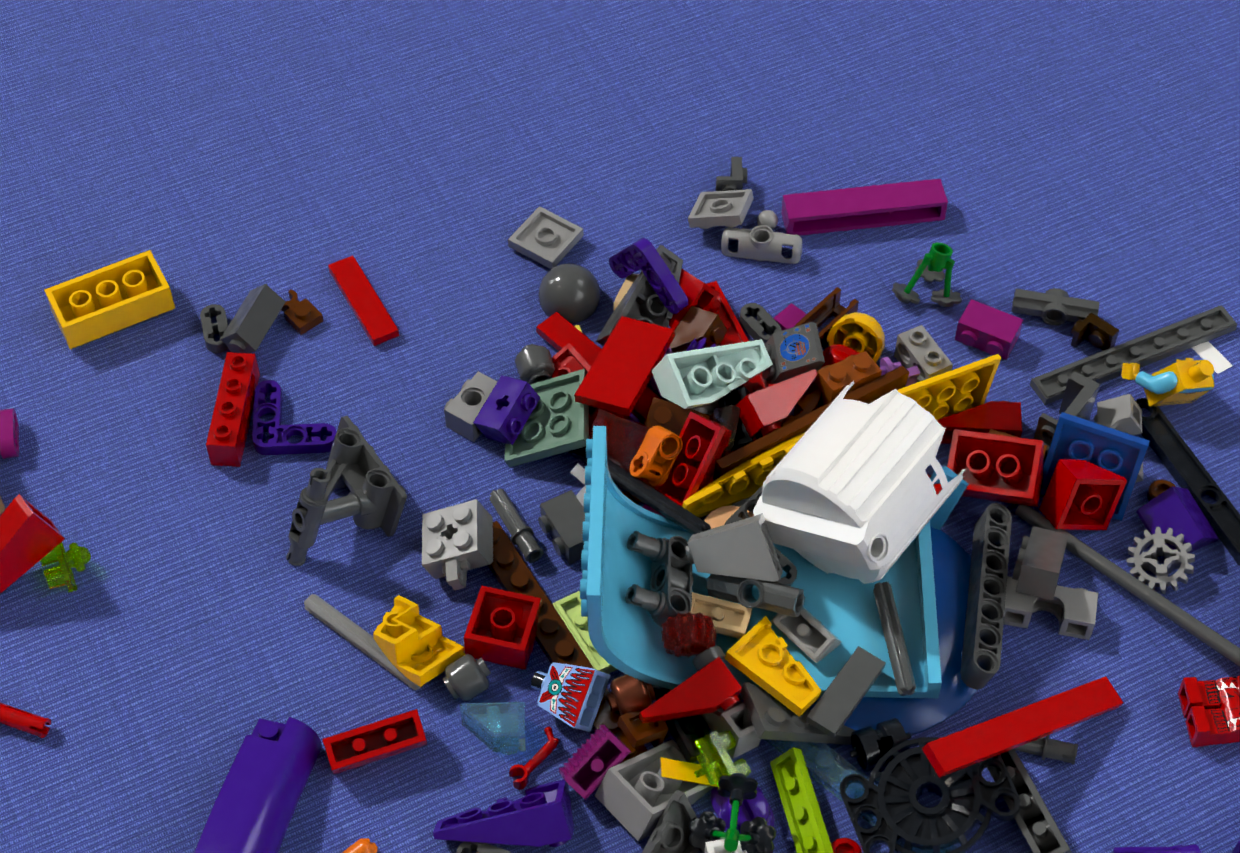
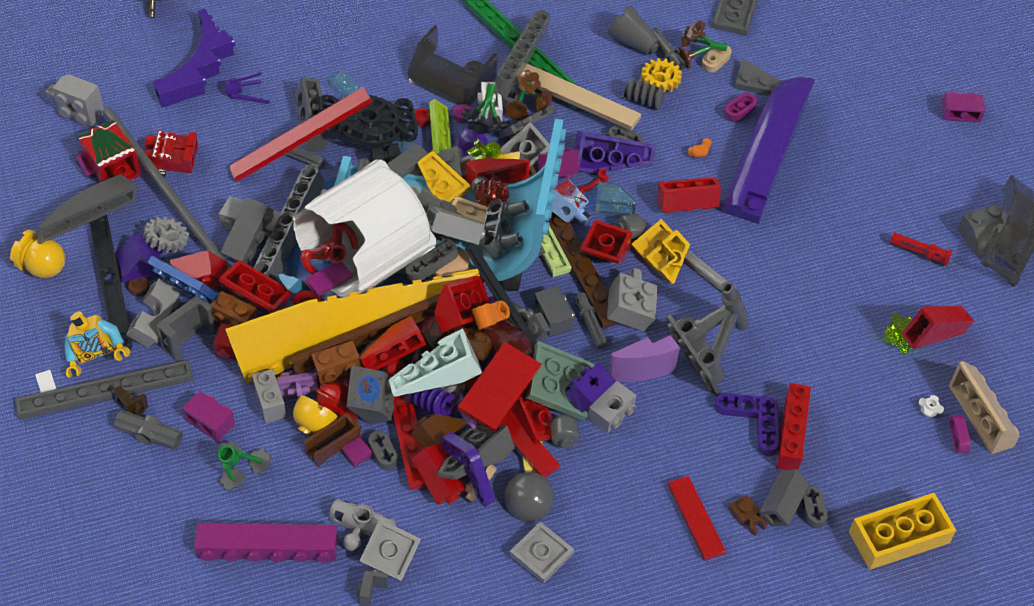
camera: 175 degrees left, 0 degrees up
(42, 475) = (928, 410): none -> white plate
(436, 455) = (644, 360): none -> medium lavender slope

